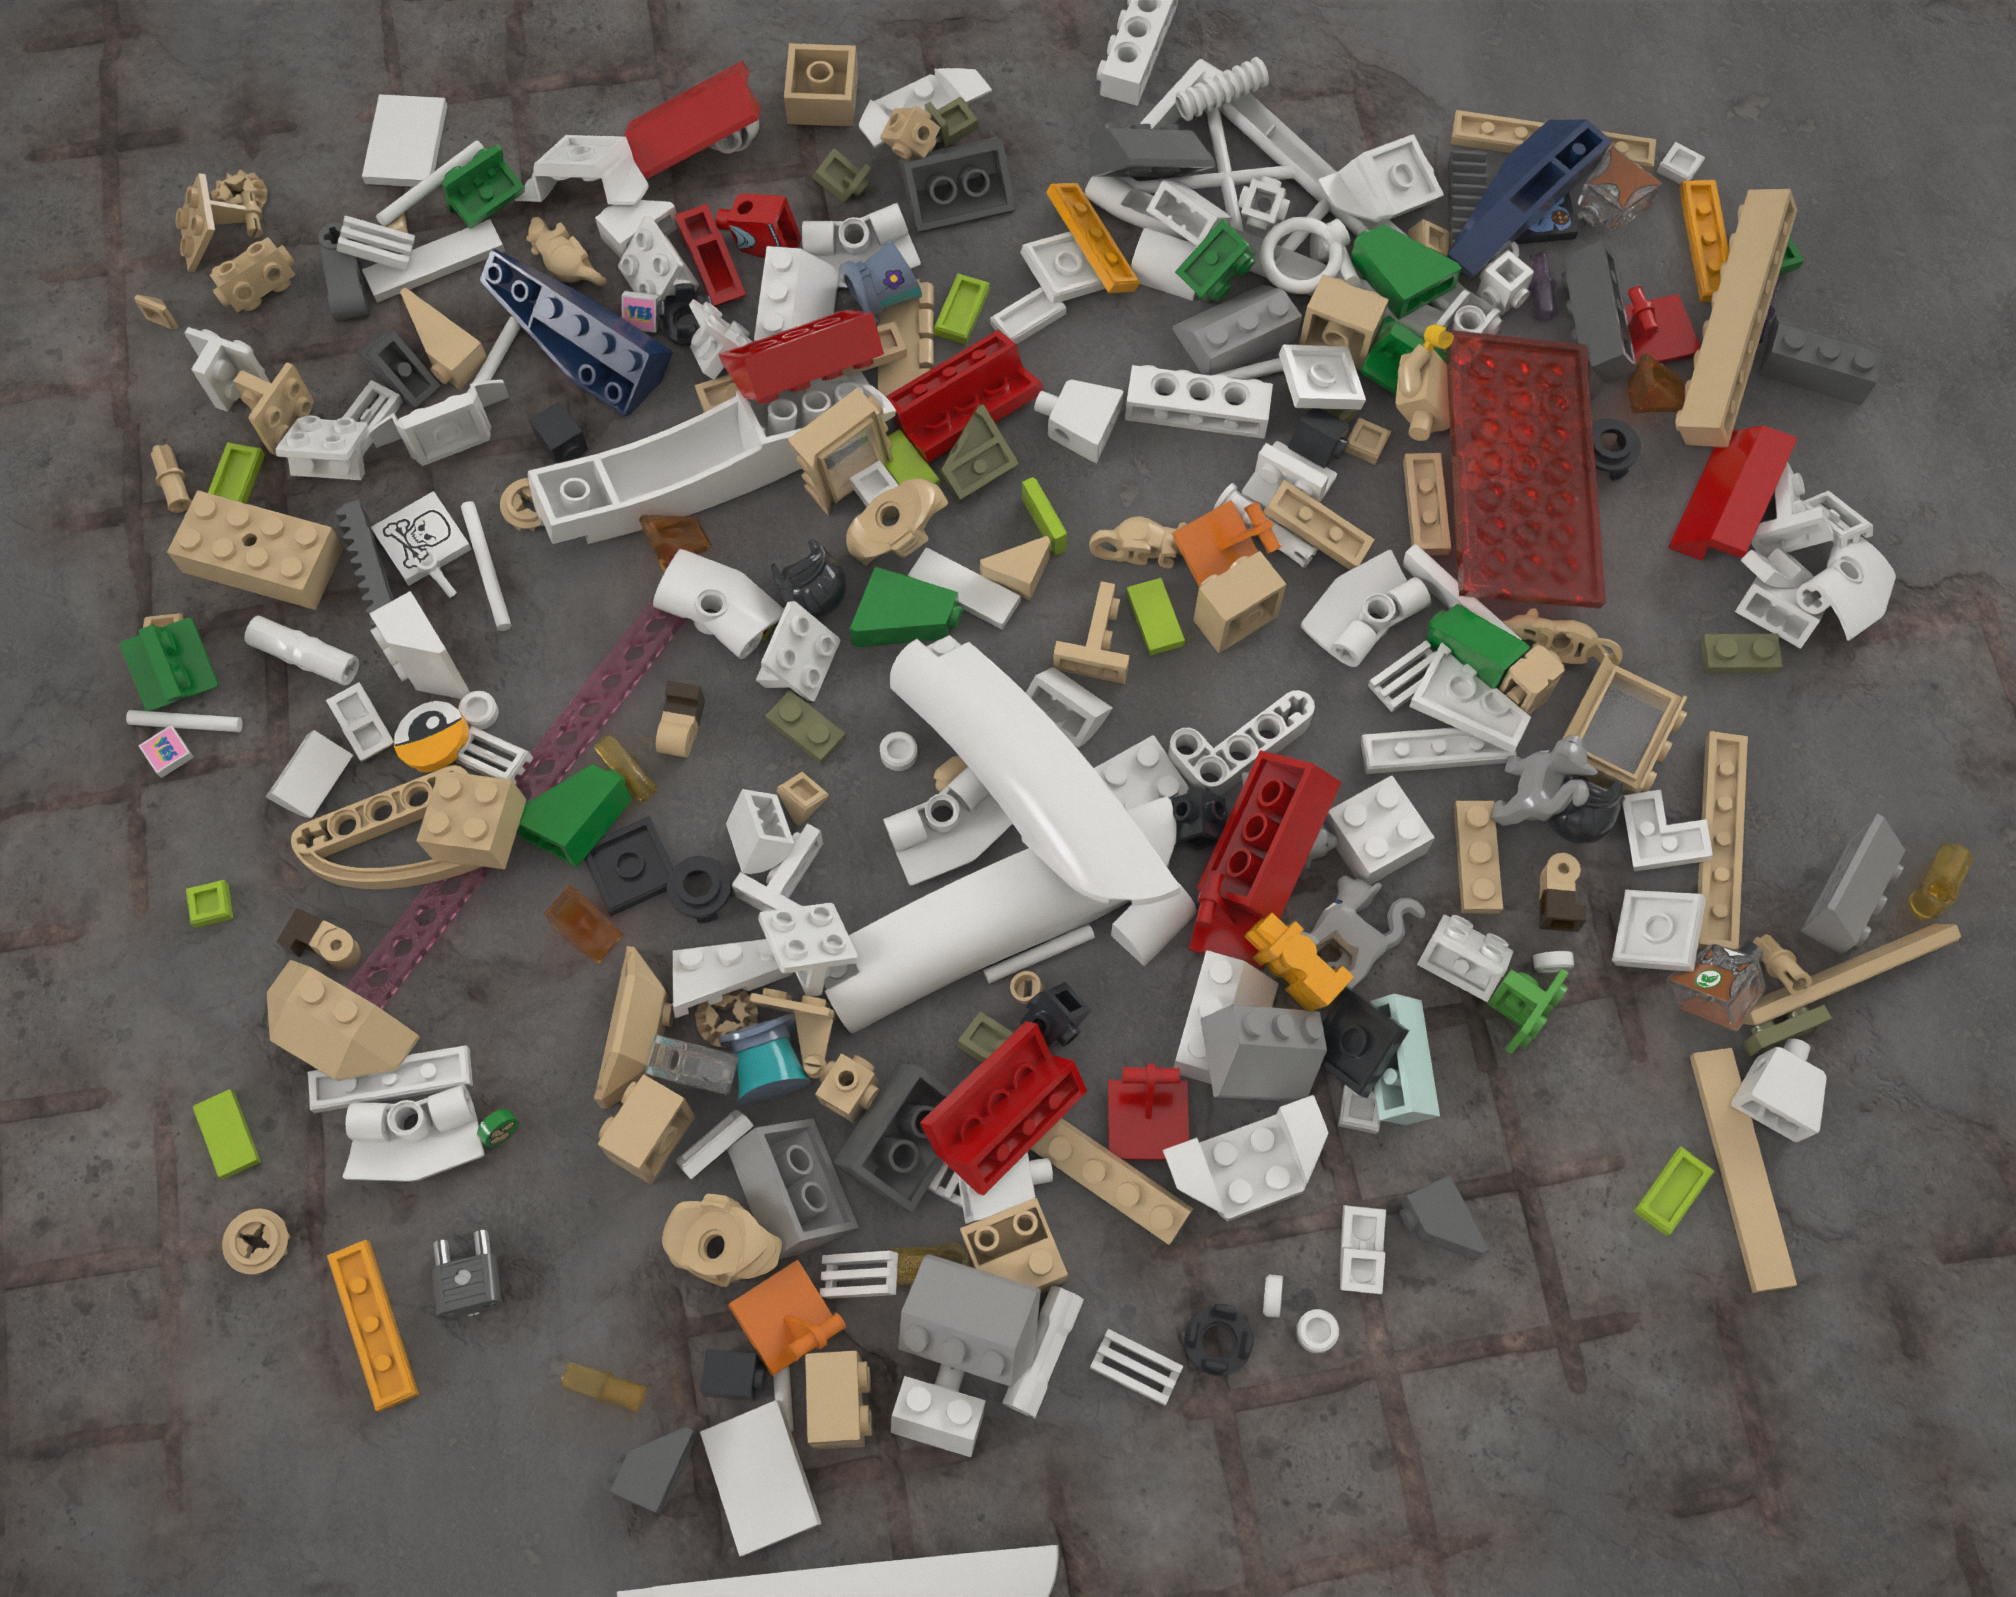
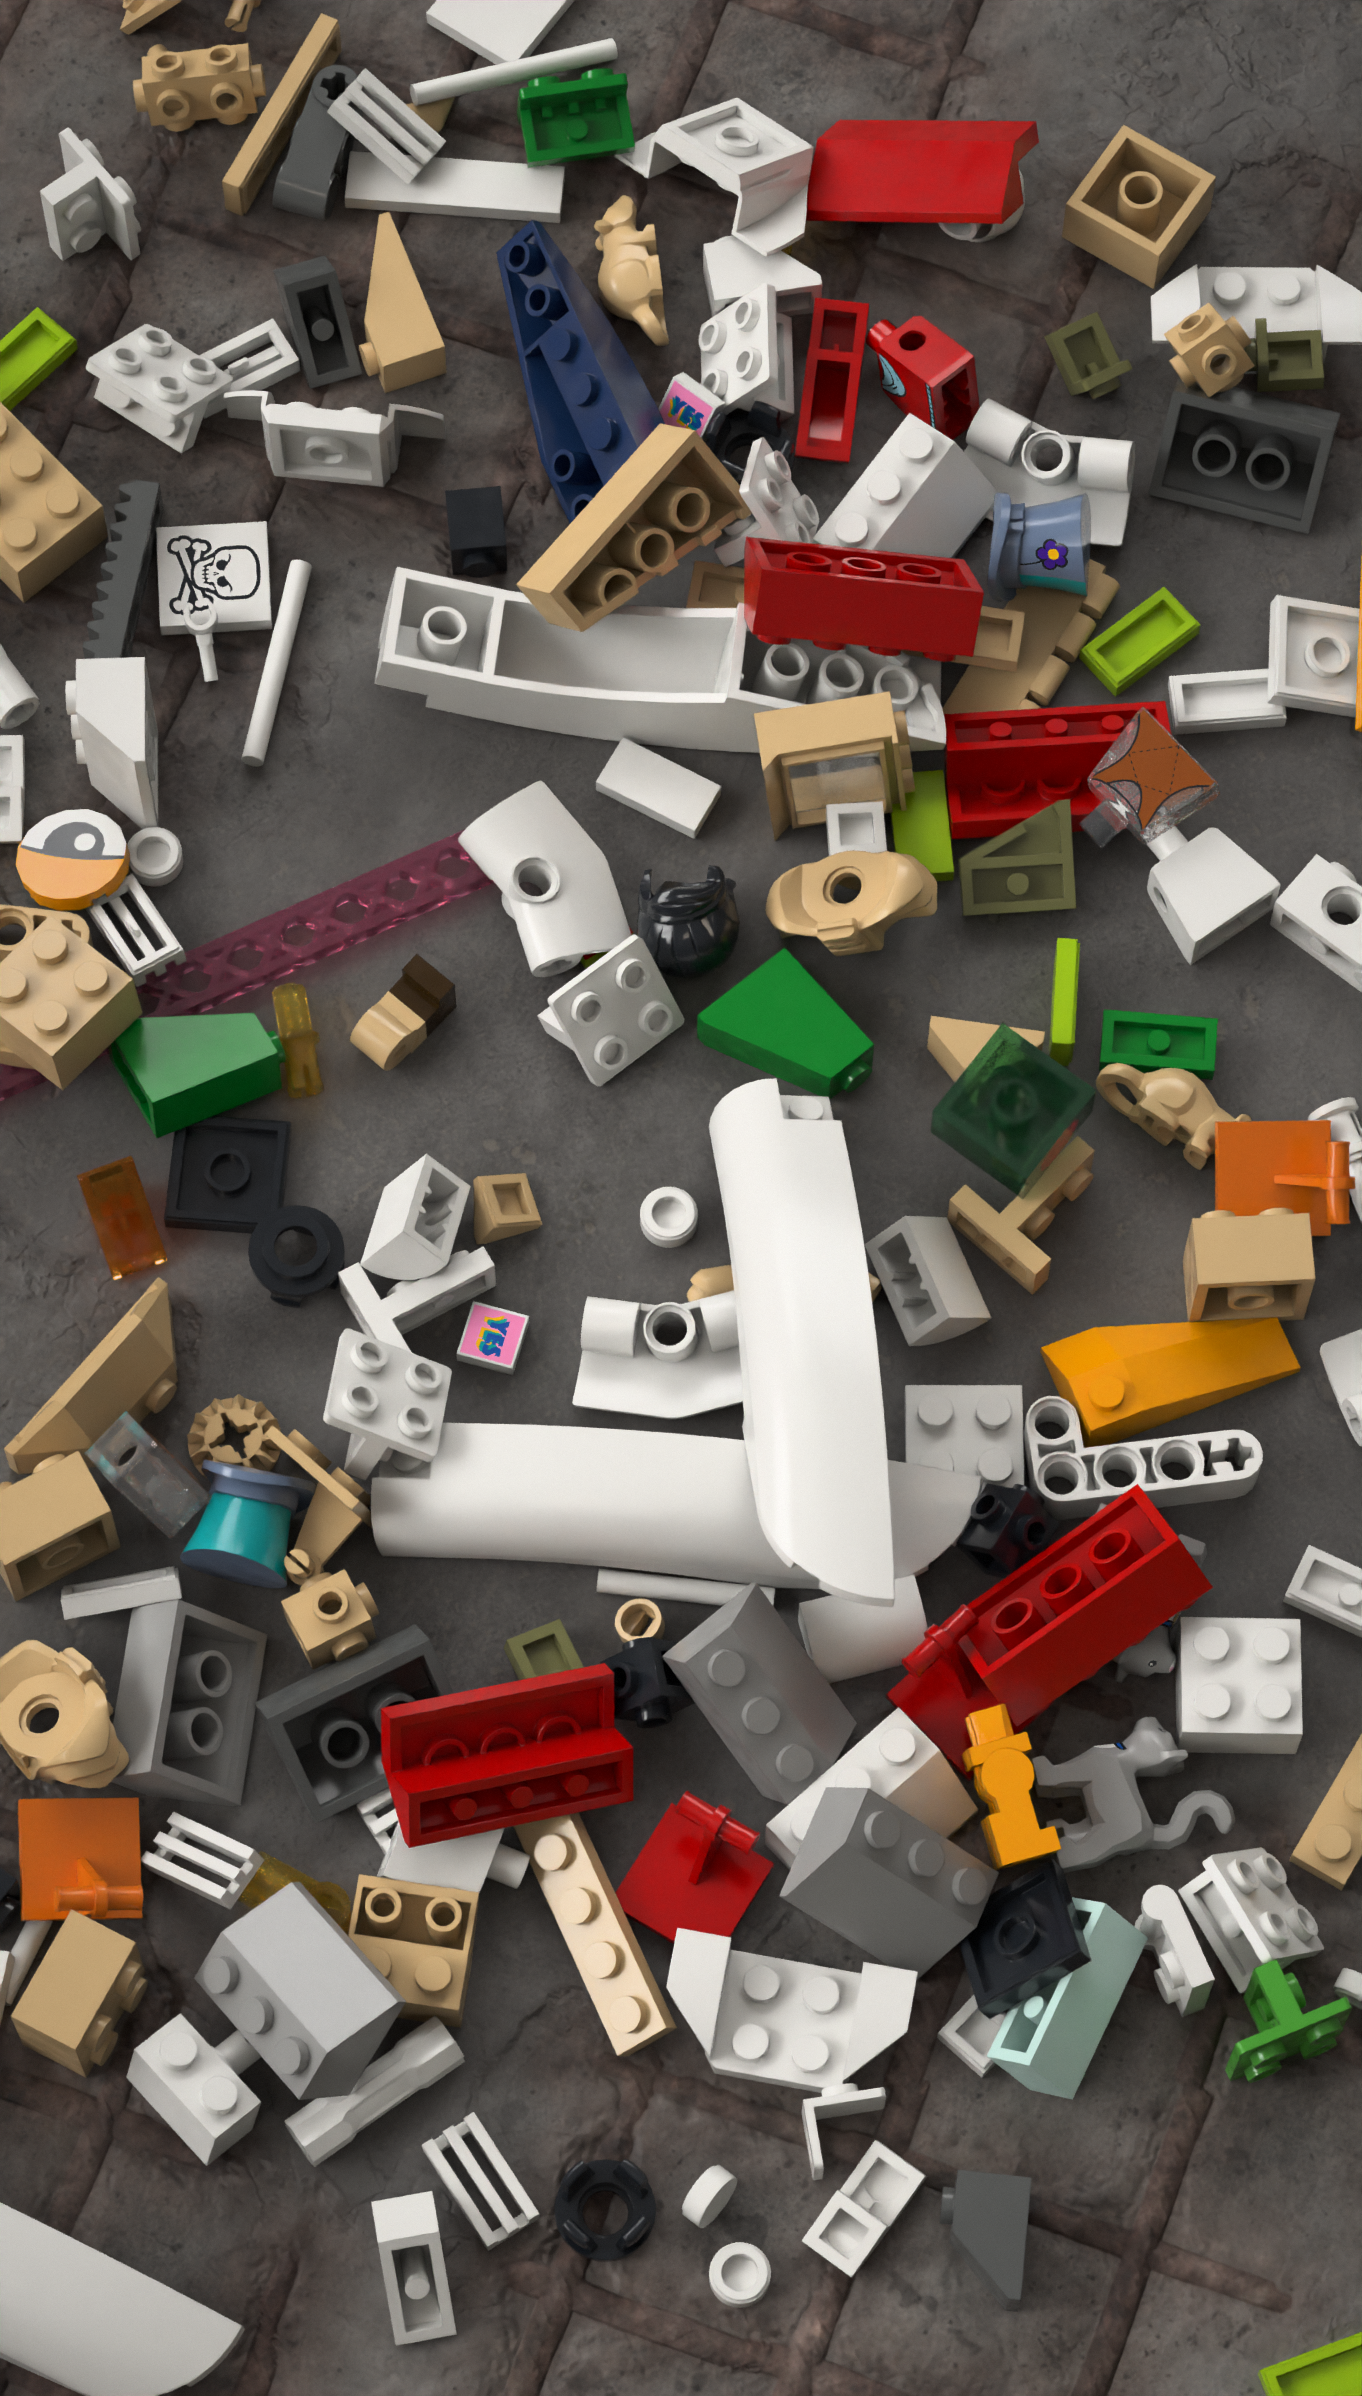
camera: 30 degrees right, 0 degrees up
(156, 311) = (47, 67): tan slope -> none
(274, 404) = (125, 294): tan bracket -> none
(310, 270) = (280, 116): none -> tan tile
(498, 351) = (458, 371): white bar -> none
(513, 508) = (359, 597): tan gear -> none
(653, 379) = (635, 528): none -> tan wedge
(670, 533) = (547, 755): clear orange slope -> none
(716, 970) = (254, 1374): white wing -> none
(747, 521) = (658, 788): none -> white tile
(805, 727) = (565, 1116): olive plate -> none
(841, 873) = (492, 1338): none -> tile
(976, 593) = (900, 1047): white tile -> none
(1020, 373) = (1146, 784): none -> torso
(1062, 584) = (1012, 1111): none -> clear green brick
(1108, 510) = (1159, 1042): none -> green plate
(1125, 989) = (763, 1695): none -> light grey slope
(1131, 1443) = (413, 2268): none -> white slope
(1155, 616) = (1130, 1225): lime tile -> none
(1223, 685) = (1156, 1373): none -> light orange wedge
(1304, 1220) = (835, 2102): none -> white bracket
(1455, 1004) = (1183, 1968): none -> white plate

